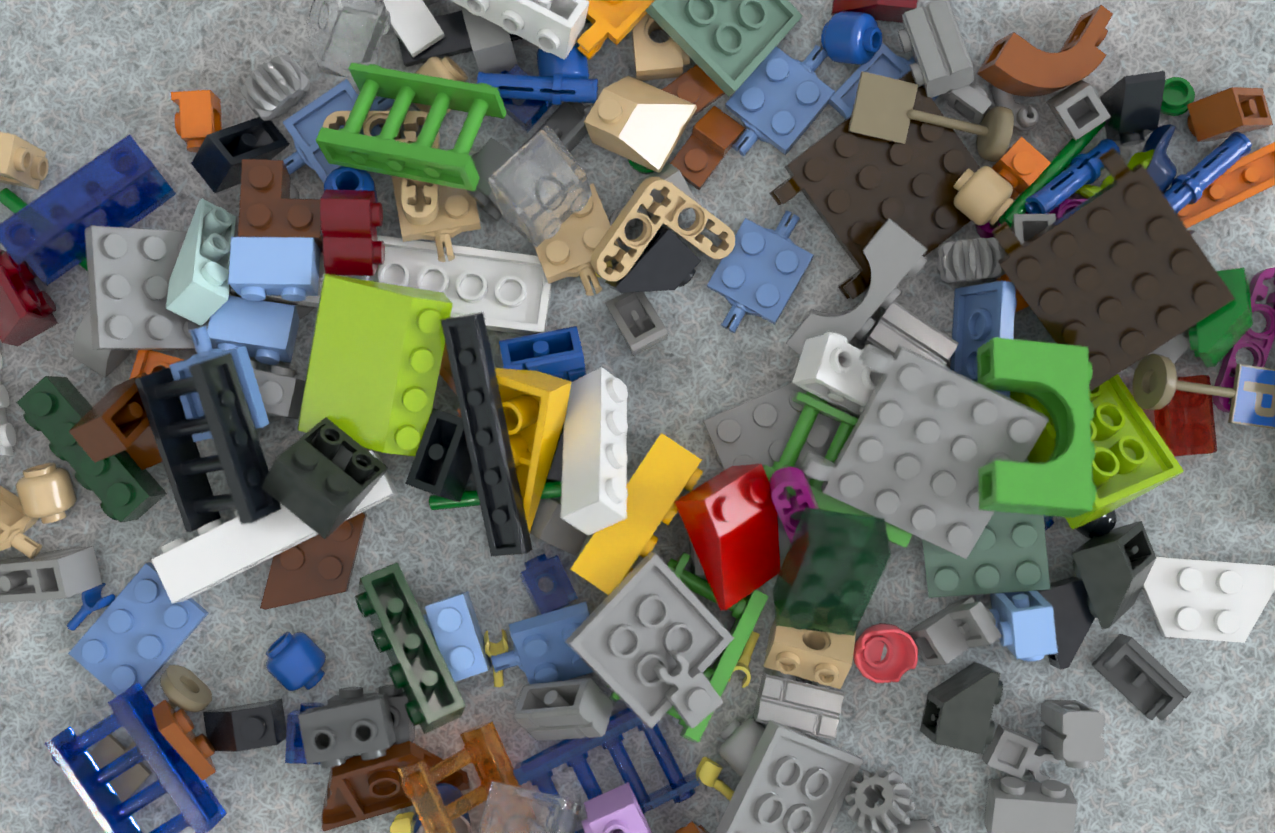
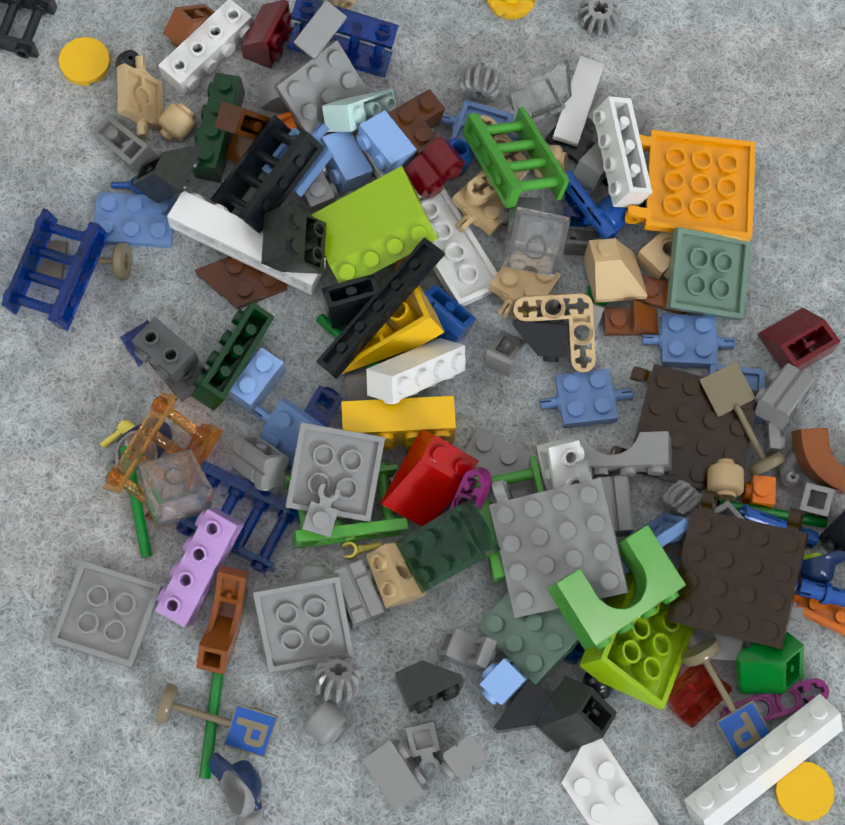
camera: 50 degrees right, 15 degrees down
(64, 239) = (320, 30): none -> light grey tile
(114, 561) = (167, 173): none -> pearl dark grey slope
(177, 730) = (99, 267): dark orange plate -> none
(197, 116) = (433, 59): orange brick -> none
(222, 151) = (425, 78): black slope -> none
(246, 726) = (124, 306): black slope -> none
(295, 661) = (179, 307): blue head -> none
(374, 785) = (135, 390): reddish brown wing -> none
(494, 649) = (262, 403): light yellow hand -> none
(708, 773) = (281, 574): light yellow hand -> none
(851, 37) = (753, 350): blue head -> none
(900, 656) = (420, 614): coral hair -> none
(1140, 678) = (525, 784): dark grey hinge -> none

